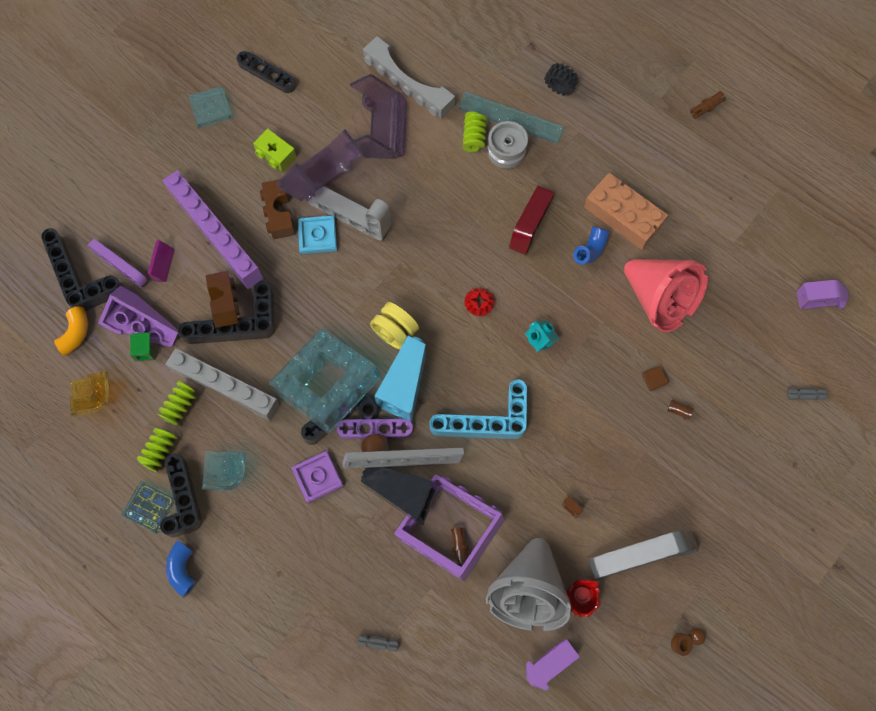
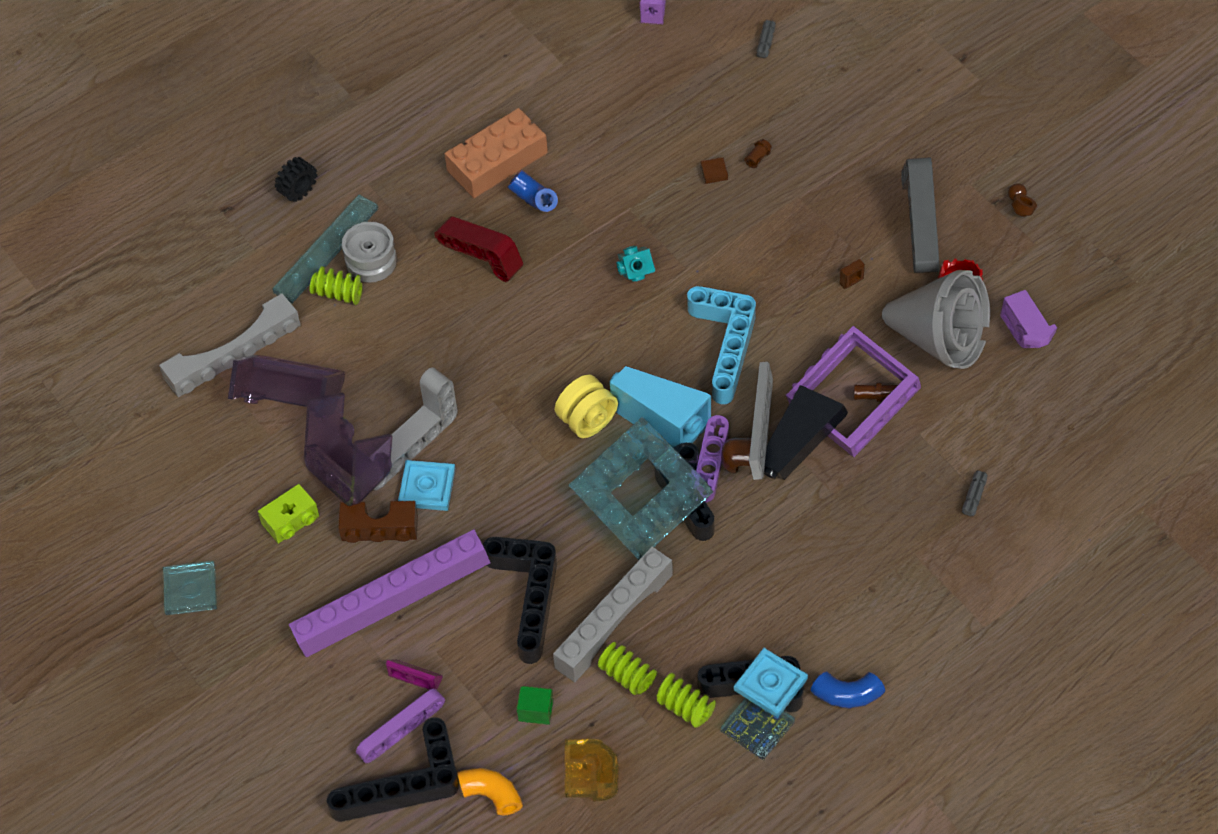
camera: 75 degrees left, 15 degrees down
(130, 315) = (487, 712): medium lavender wedge -> none
(169, 508) = (770, 682): none -> medium azure tile
(222, 299) = (477, 595): reddish brown arch -> none
(223, 470) = (731, 624): clear light blue brick -> none
(266, 71) = (155, 509): black beam -> none
(317, 477) = (758, 529): medium lavender tile -> none
(472, 306) = (576, 330): red gear -> none
(667, 289) = (608, 130): coral cone -> none
(707, 105) = (378, 48): reddish brown pin -> none

